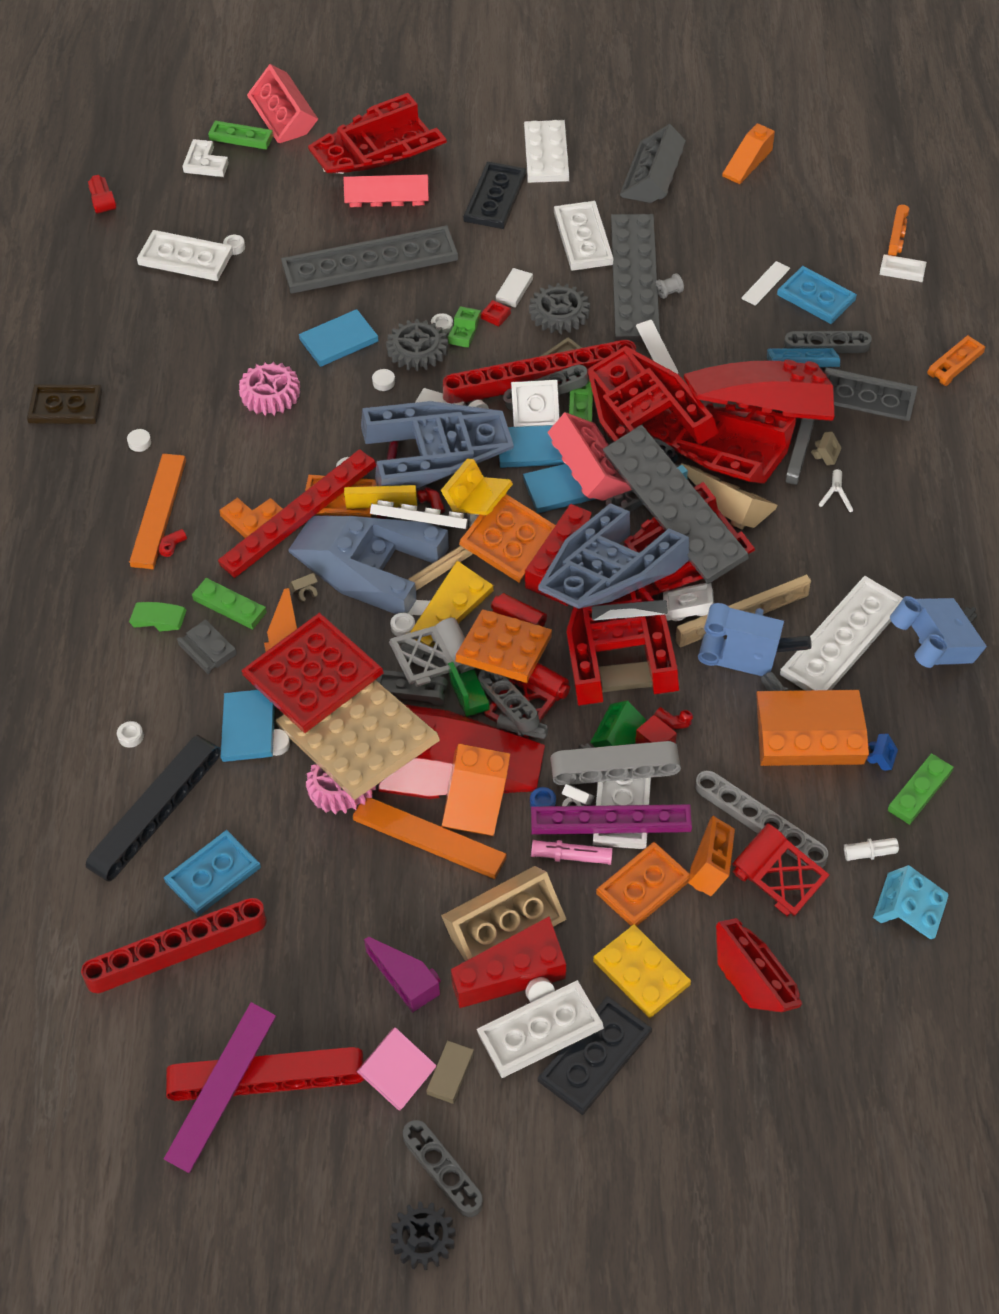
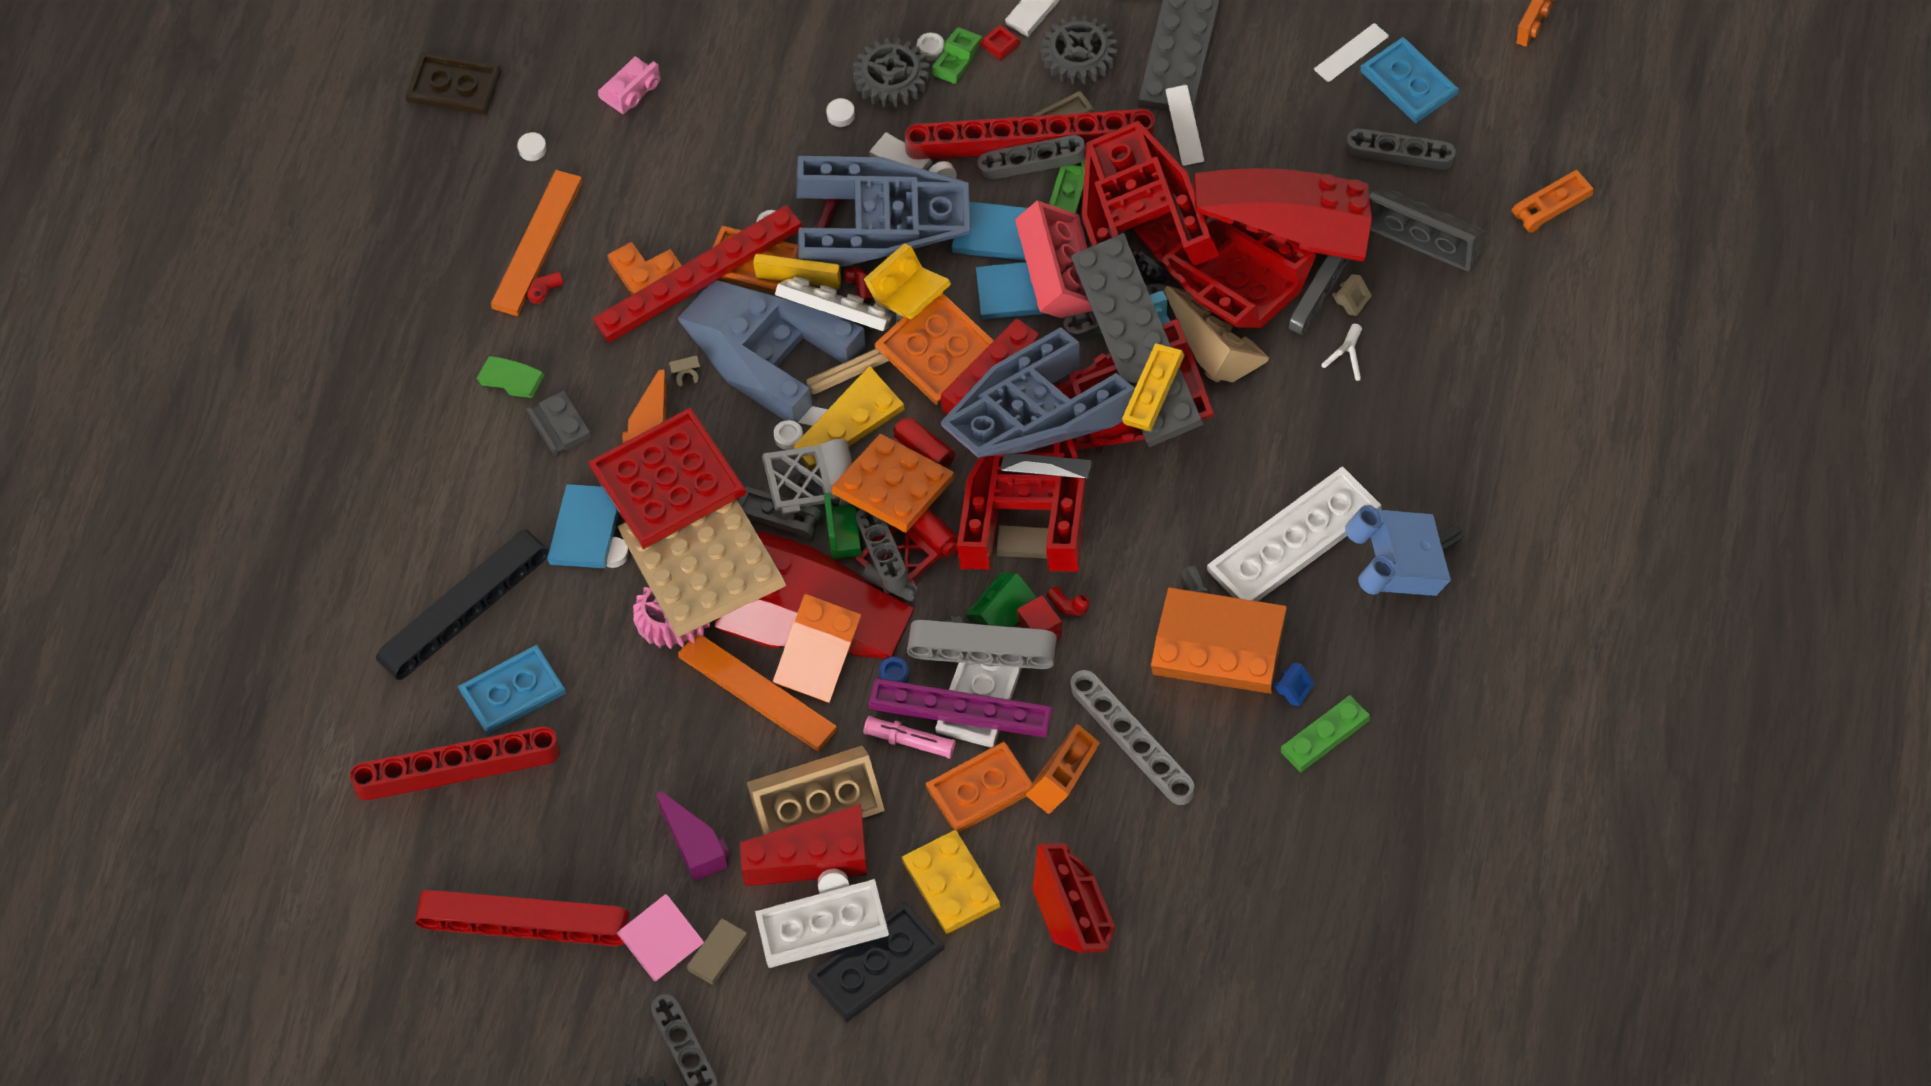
camera: 15 degrees right, 5 degrees up
(130, 734) = (453, 514): white tile -> none
(209, 384) = (630, 85): none -> bright pink bracket
(220, 1088) = (471, 922): magenta tile -> none
(229, 603) = (595, 374): bright green plate -> none
(269, 388) = (684, 110): bright pink gear -> none
(338, 337) = (799, 46): dark azure tile -> none
(535, 403) = (1012, 177): white plate -> none
(577, 796) = (932, 673): white tile -> none
(669, 285) = (1225, 39): light grey bush -> none
(688, 601) = (1122, 464): white plate -> none
(703, 534) = (1153, 387): none -> yellow plate
(749, 642) = (1170, 524): medium blue piece -> none
(763, 854) = (1115, 780): red piece -> none
(767, 600) = (1186, 485): tan tile -> none
(822, 356) = (1365, 167): dark azure tile -> none
(871, 849) = (1244, 792): white axle -> none
(903, 268) = (1531, 59): white tile -> none
(913, 900) = (1271, 860): medium azure bracket -> none

